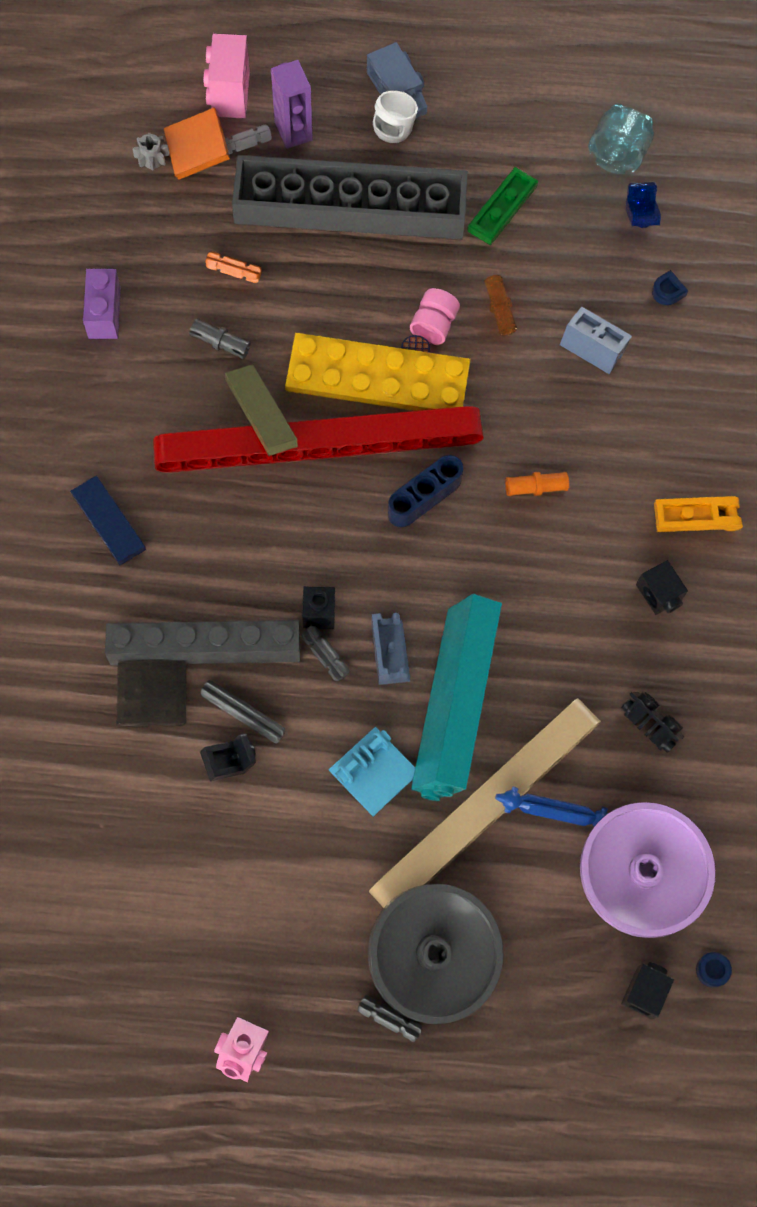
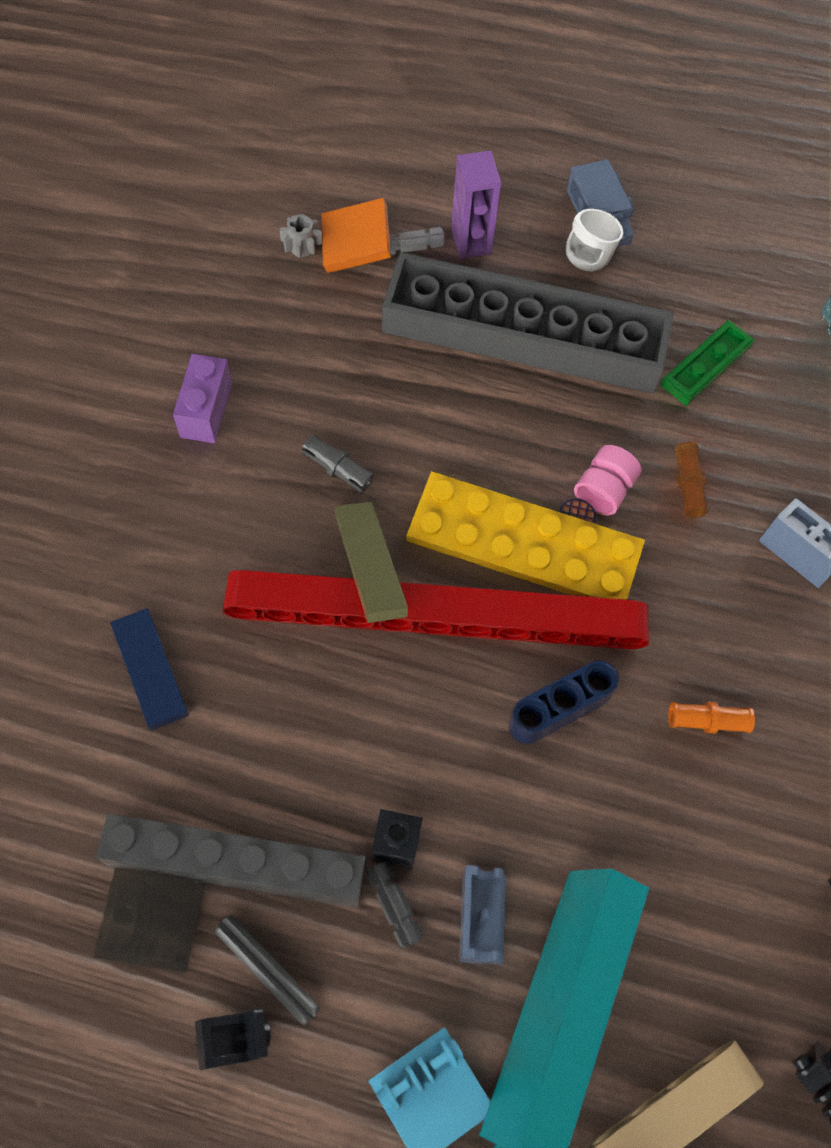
camera: 10 degrees right, 5 degrees down
(227, 75) = (406, 165): bright pink brick -> none
(233, 267) = (371, 381): orange axle -> none

